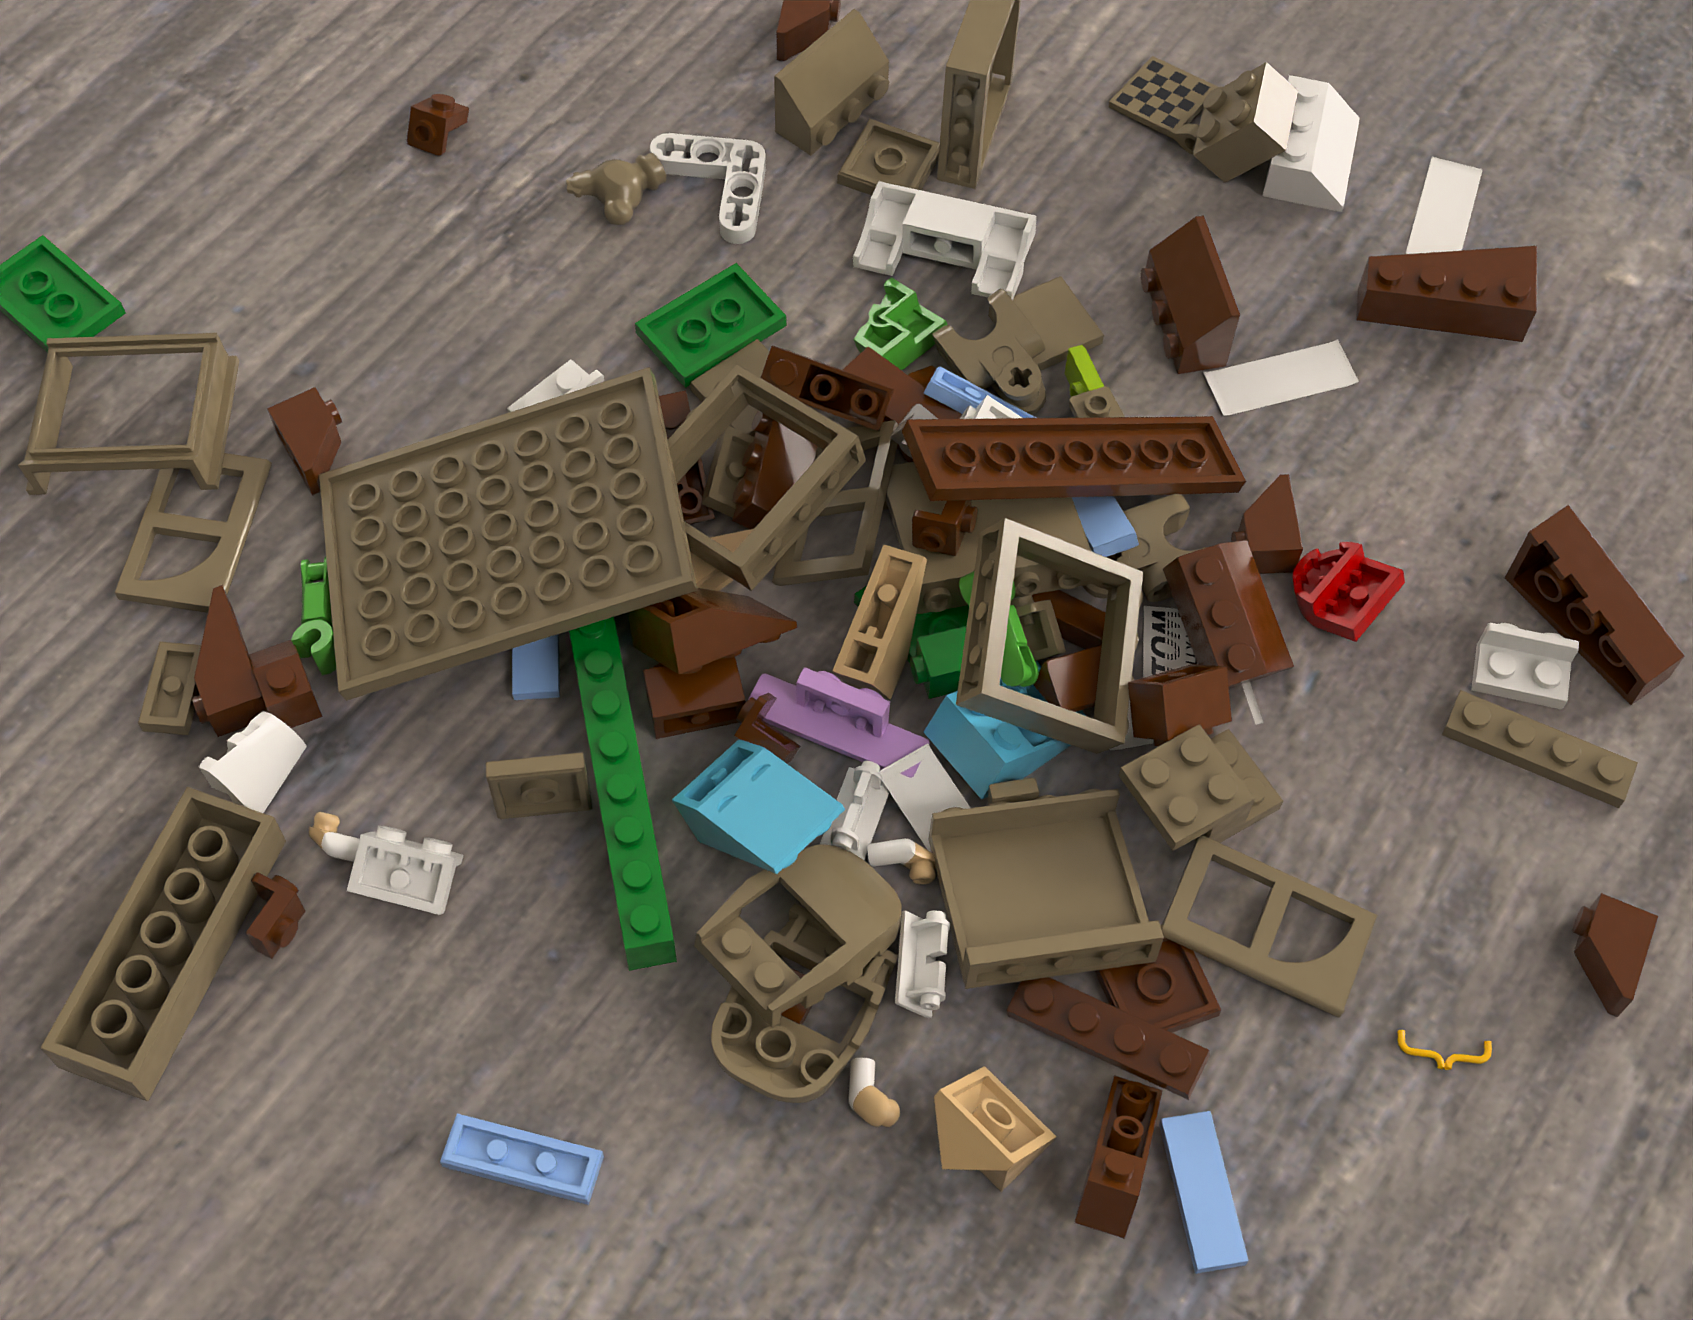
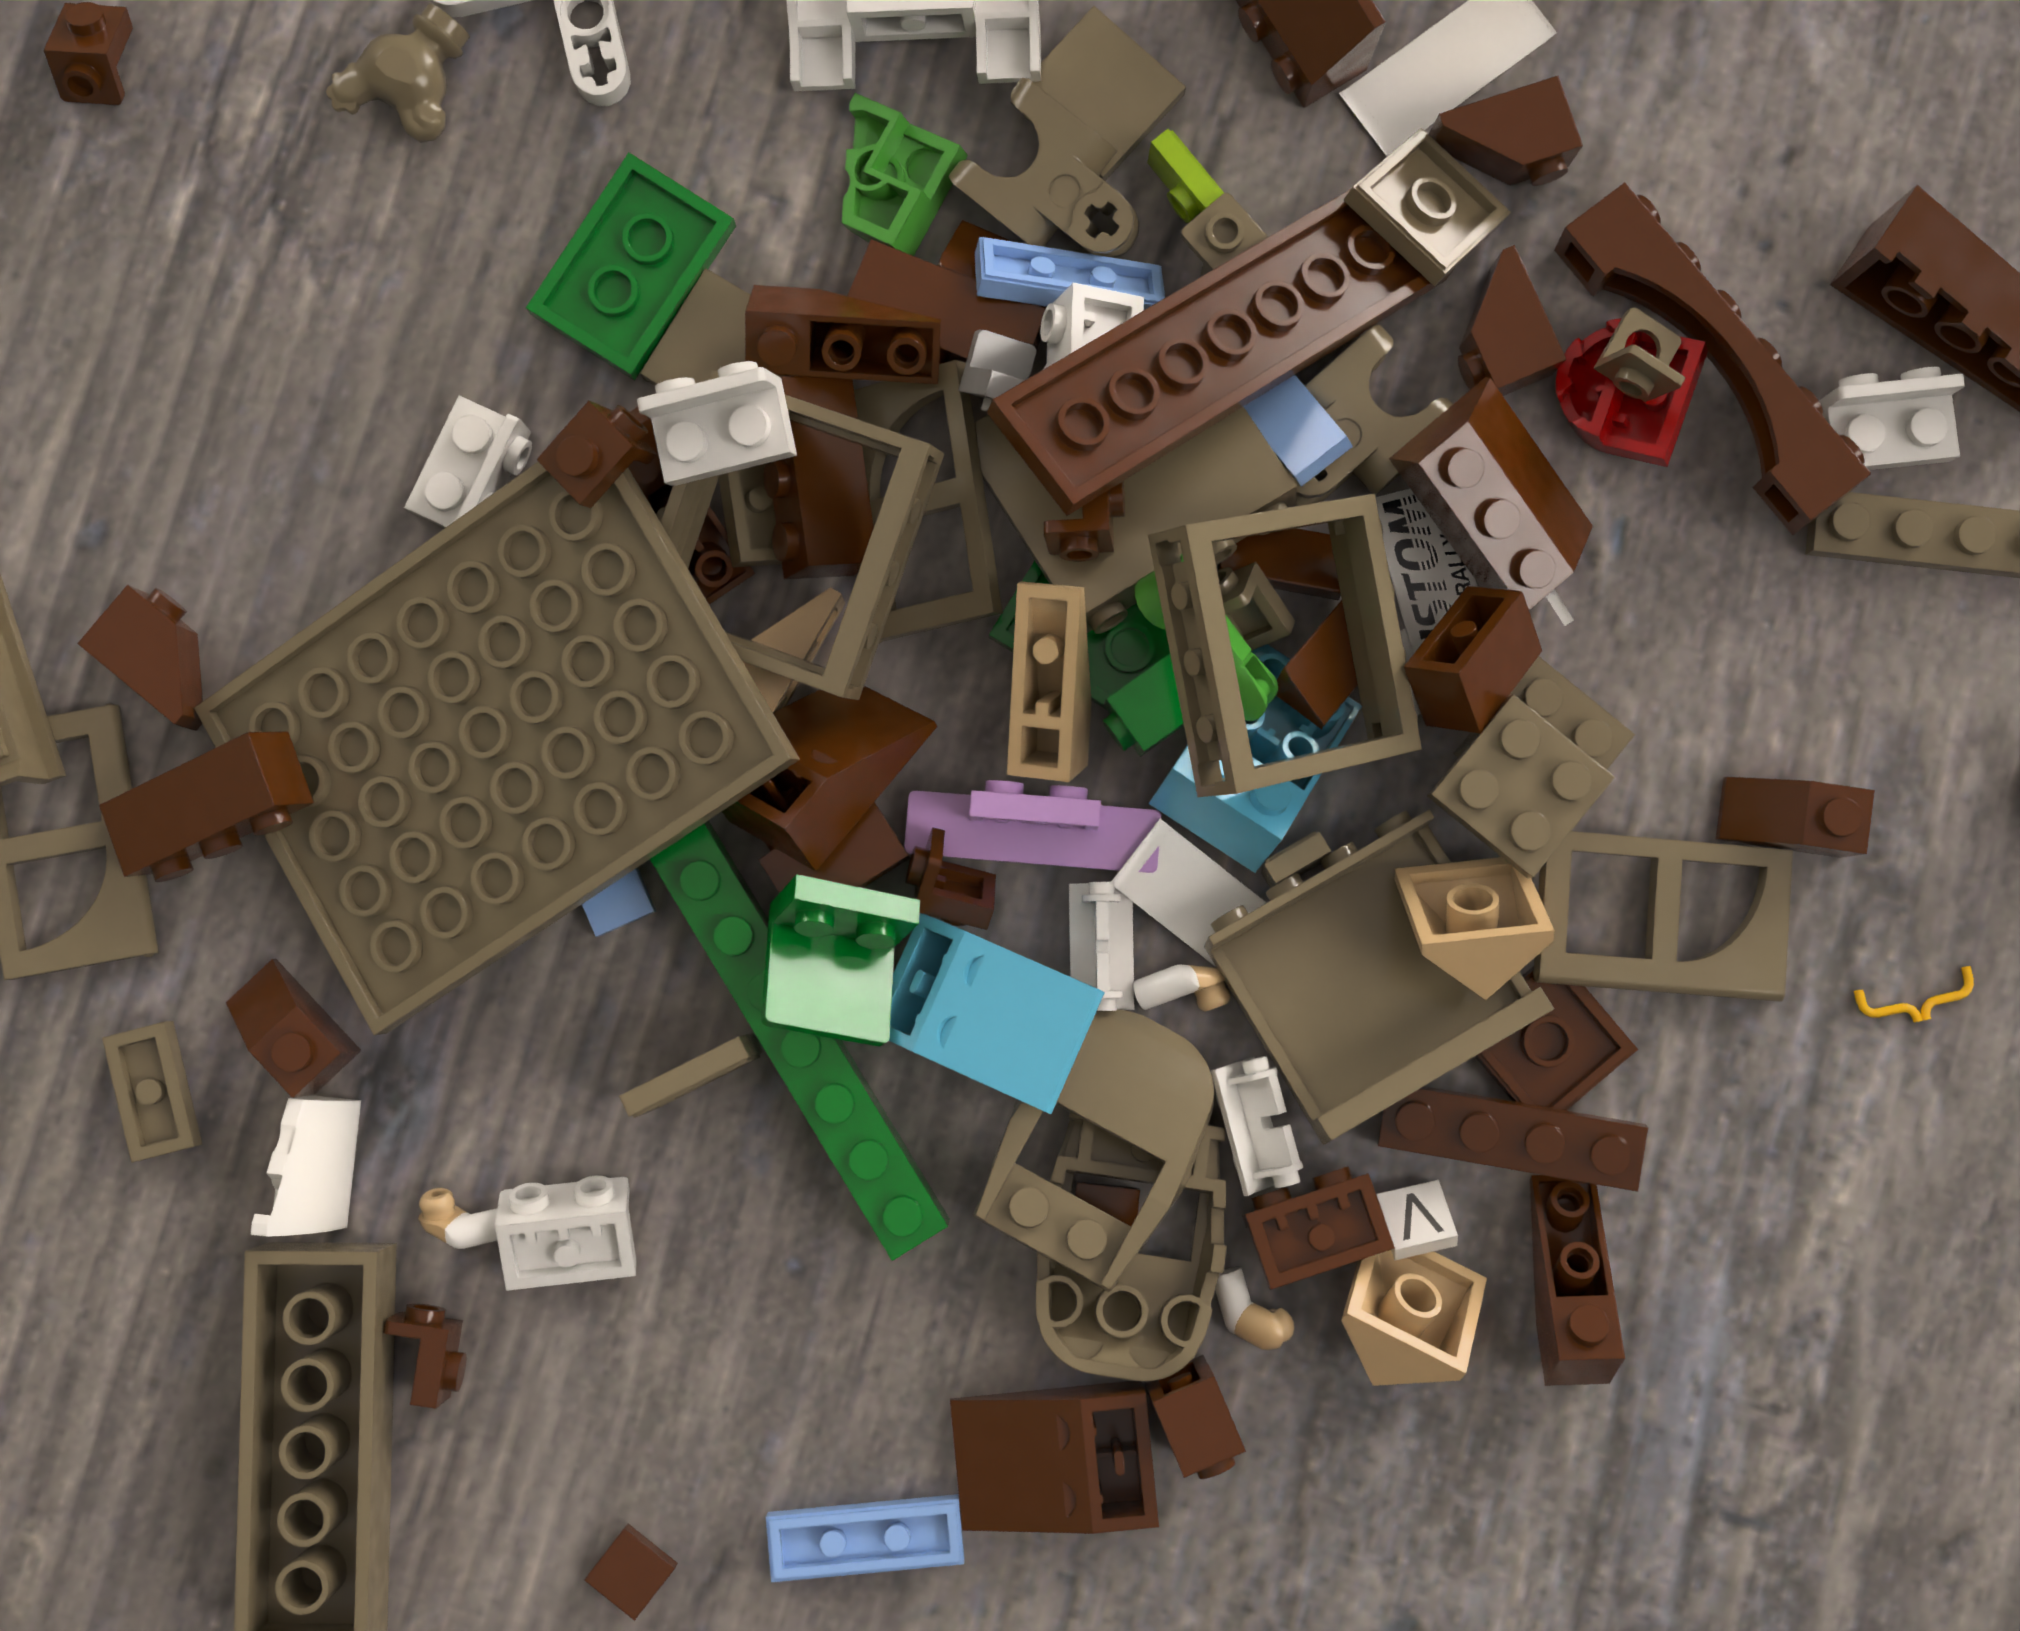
camera: 20 degrees left, 25 degrees up
(224, 672) = (202, 1041): reddish brown slope -> none
(300, 521) = (207, 805): none -> reddish brown brick
(316, 629) = (287, 920): bright green piece -> none
(342, 1120) = (631, 1571): none -> reddish brown tile
(643, 380) = (595, 451): none -> reddish brown bracket
(670, 733) = (833, 959): none -> bracket
(687, 1141) = (1056, 1460): none -> reddish brown slope
(728, 387) = (719, 423): none -> white bracket
(800, 1137) = (1196, 1420): none -> reddish brown brick
(940, 1042) = (1317, 1229): none -> reddish brown bracket
(1017, 1070) = (1418, 1219): none -> white tile
(1128, 868) = (1475, 919): none -> tan slope
(1203, 1192) = (1680, 1285): light blue tile -> none
(1238, 442) = (1427, 206): none -> dark tan tile
(1307, 420) = (1513, 134): none -> reddish brown slope
(1353, 561) = (1633, 368): none -> dark tan bracket
(1388, 887) = (1796, 815): none -> reddish brown slope
(1451, 662) = (1629, 253): none -> reddish brown arch

